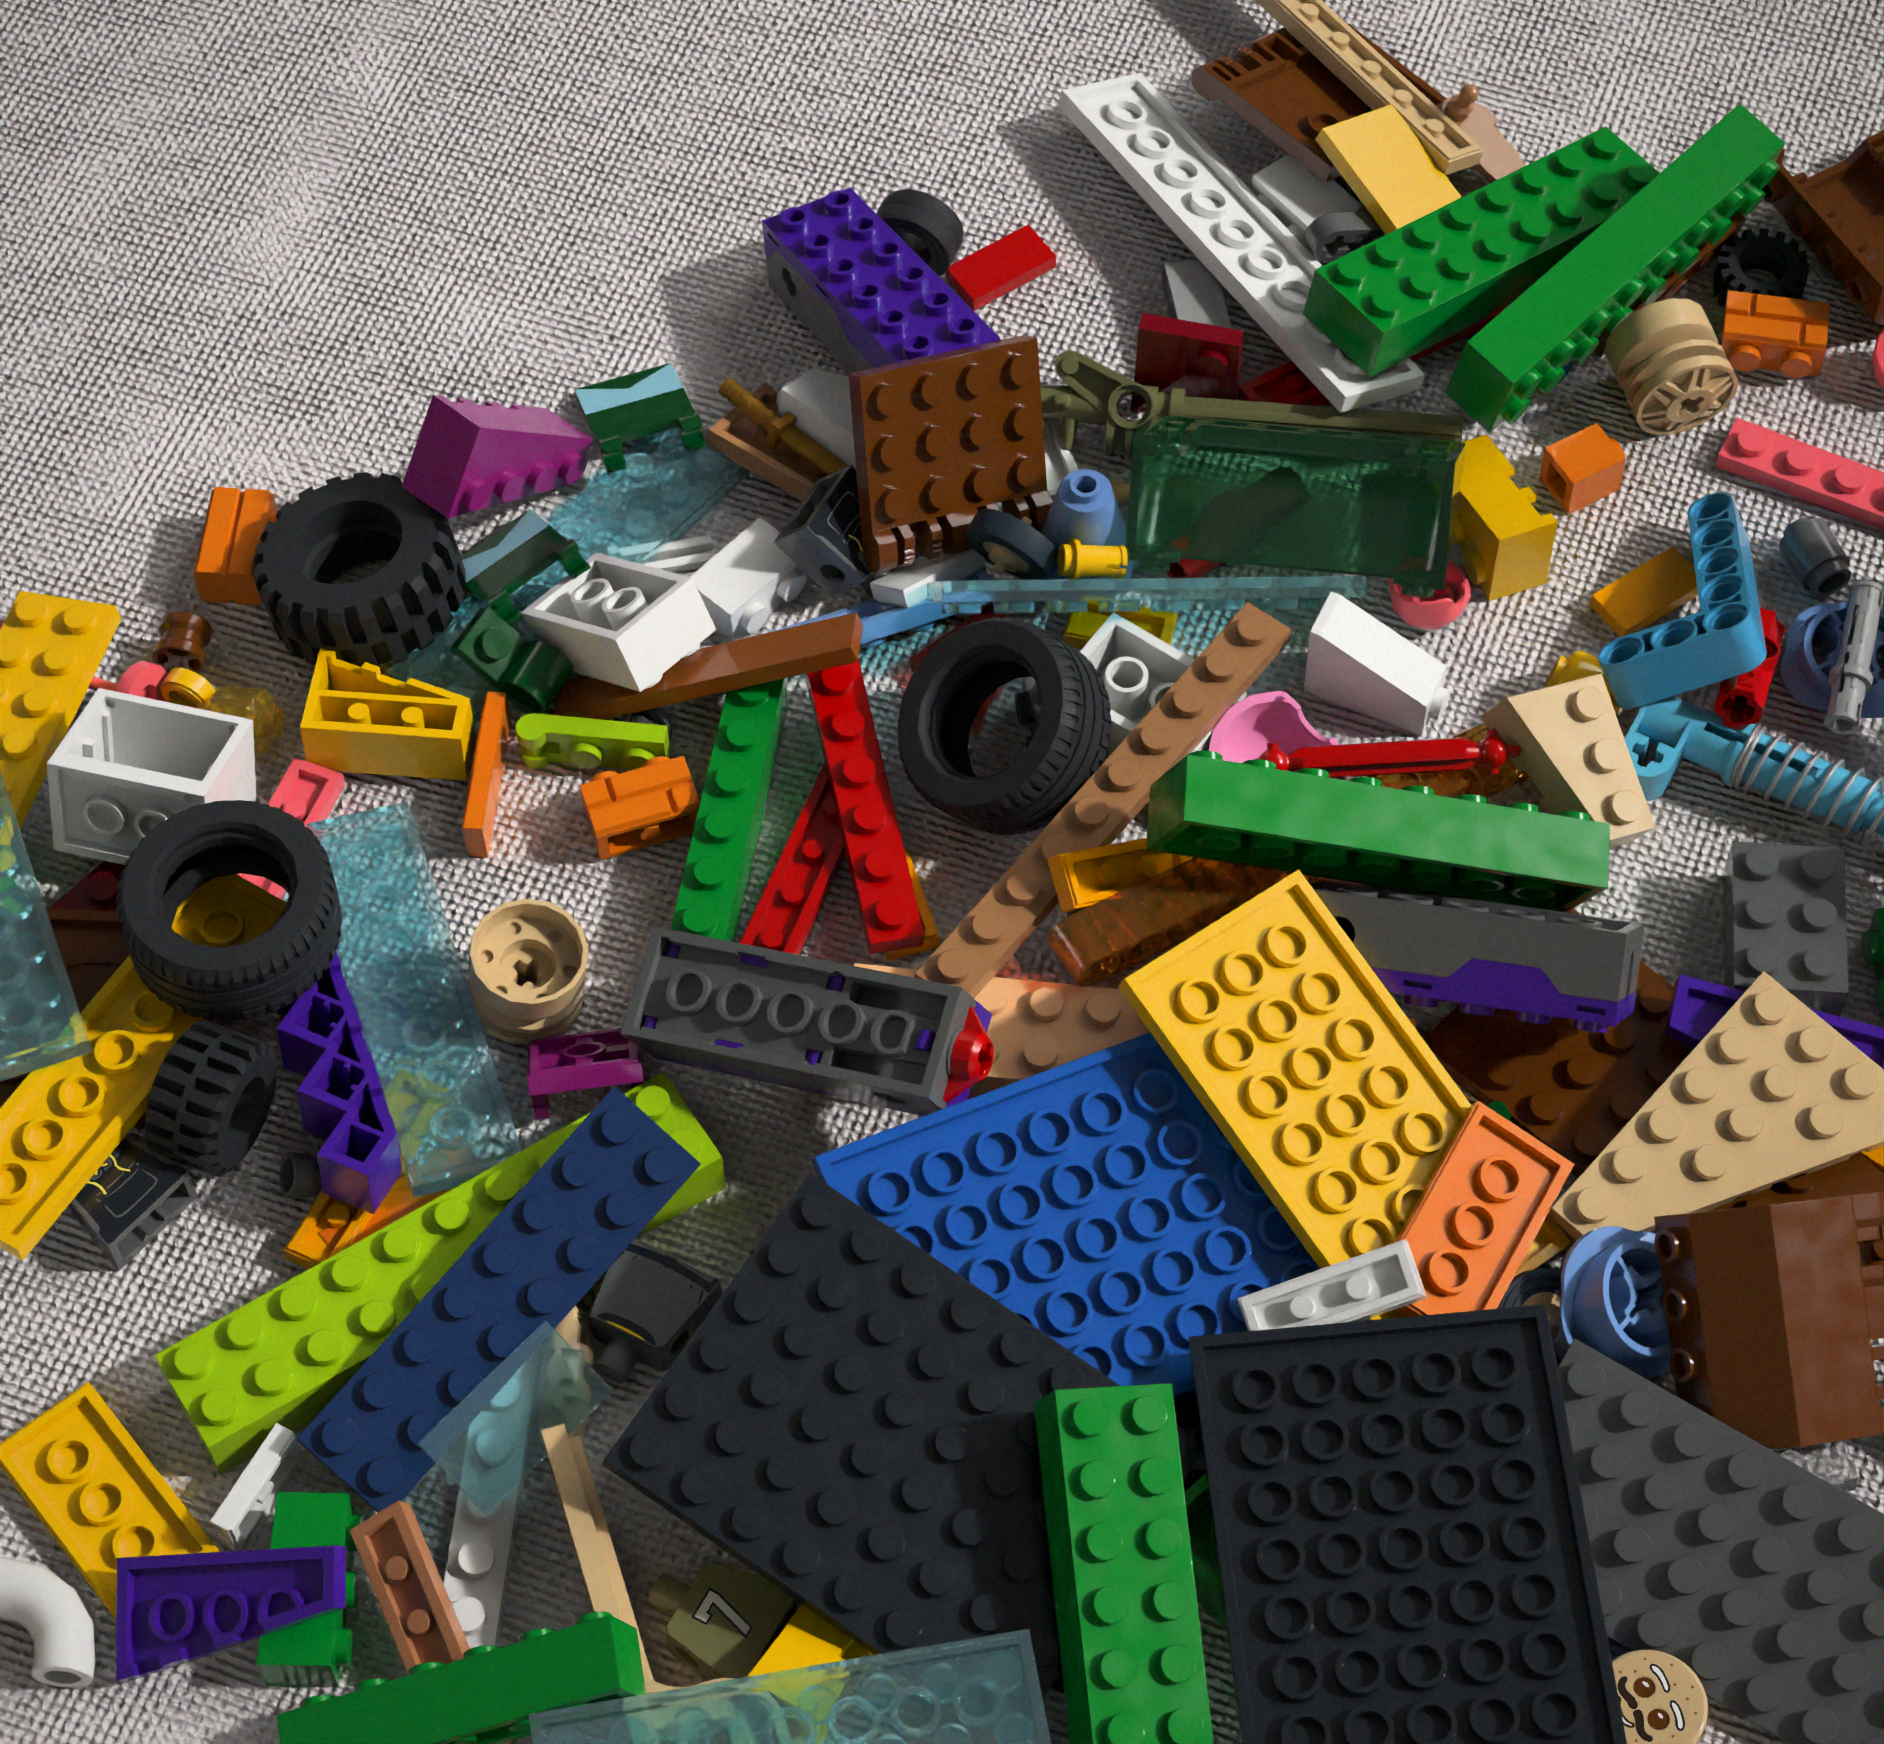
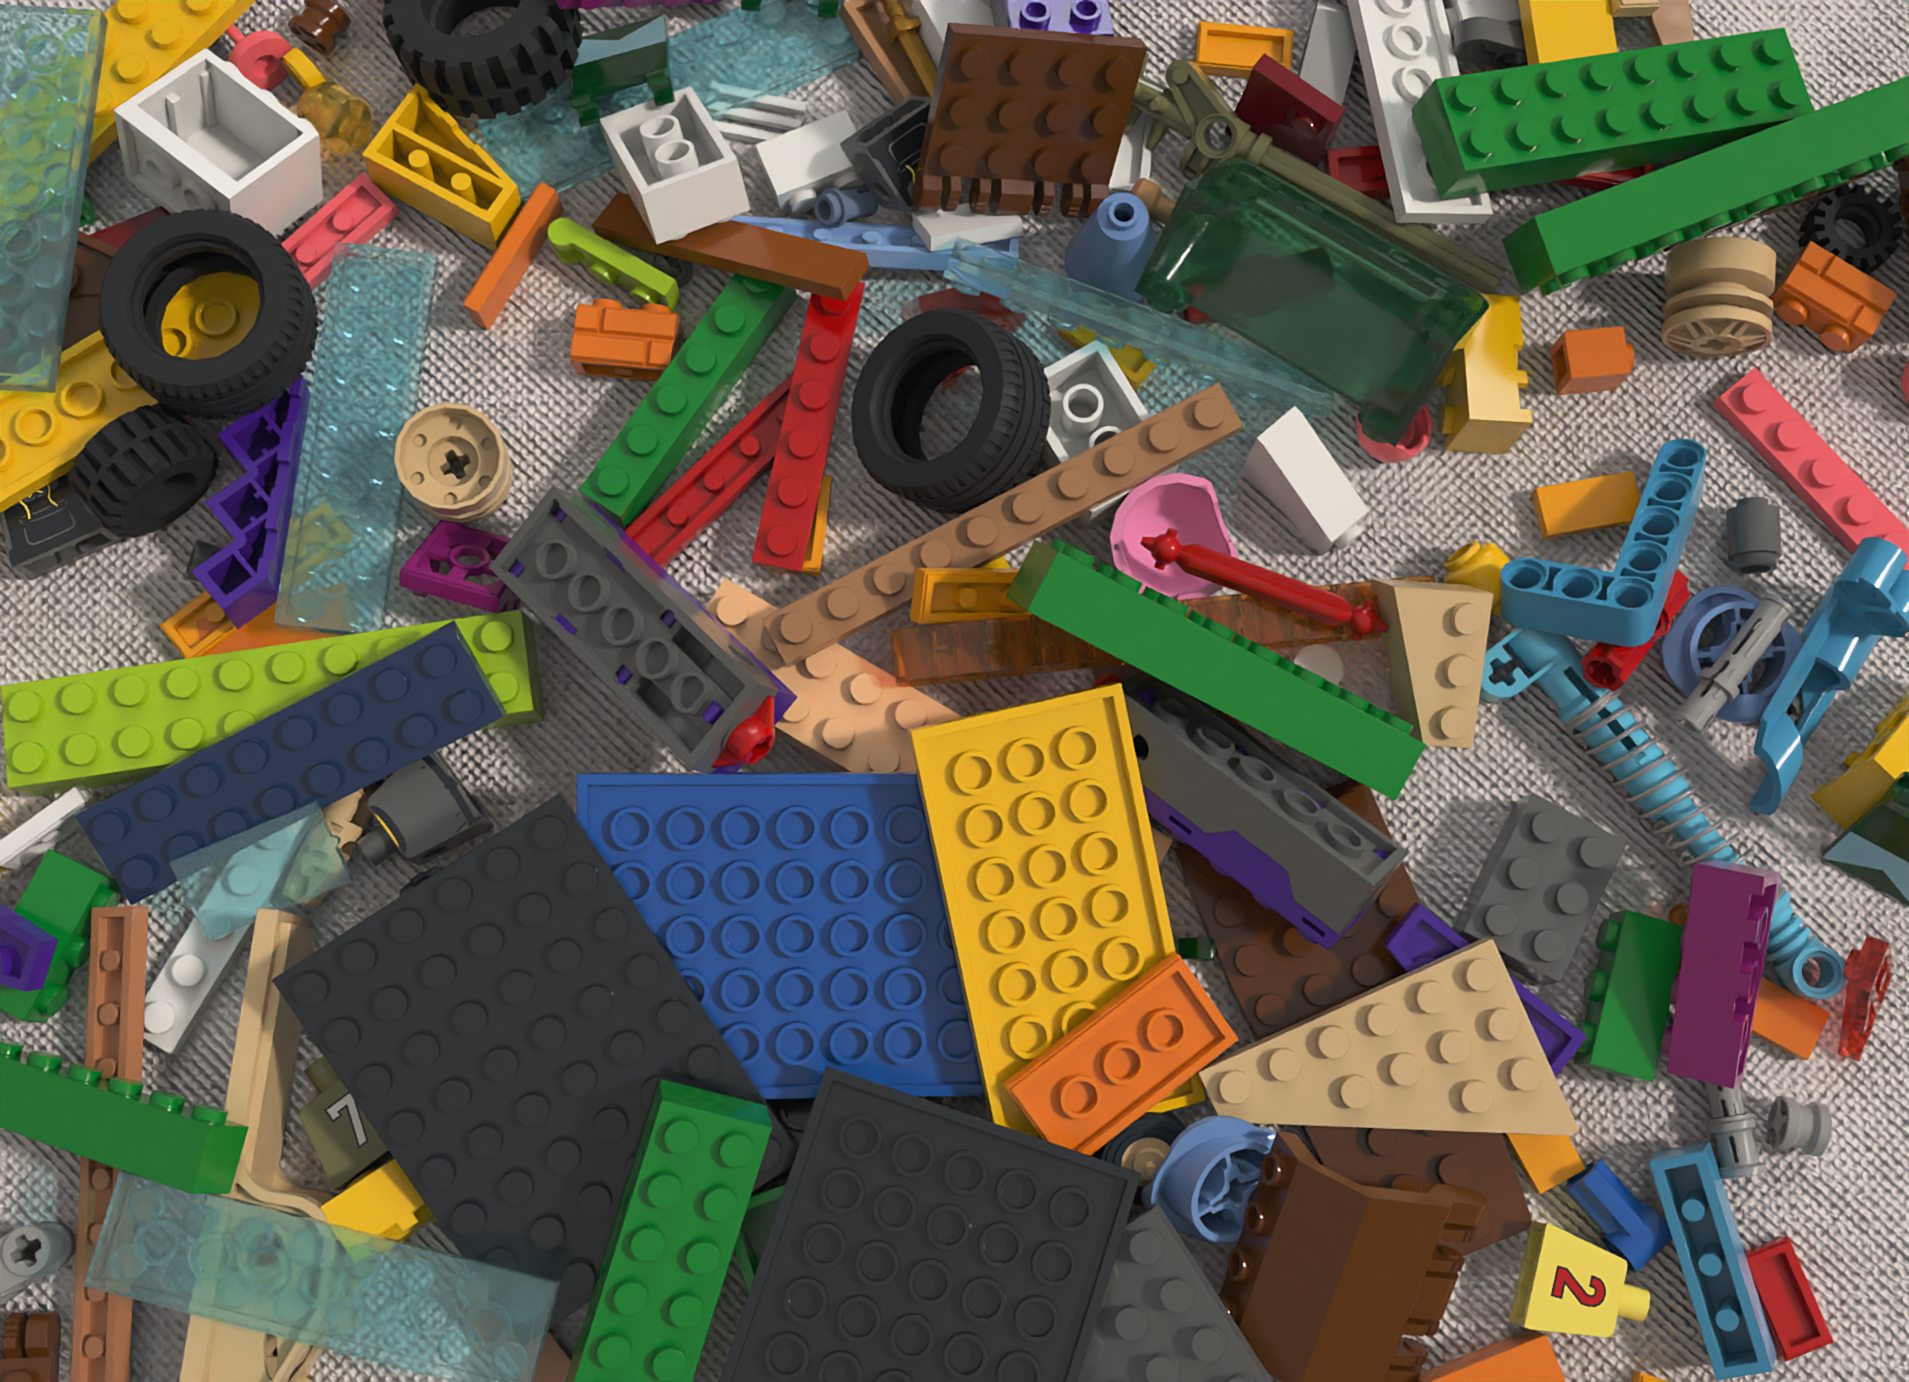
camera: 20 degrees right, 20 degrees up
(523, 669) = (573, 160): dark green plate -> none
(793, 605) = (838, 206): none -> sand blue pin
(1012, 545) = (1044, 233): black wheel -> none
(1091, 560) = (1104, 280): yellow pin -> none
(1107, 335) = (1236, 48): none -> light orange tile
(1340, 1292) = (968, 1082): white tile -> none

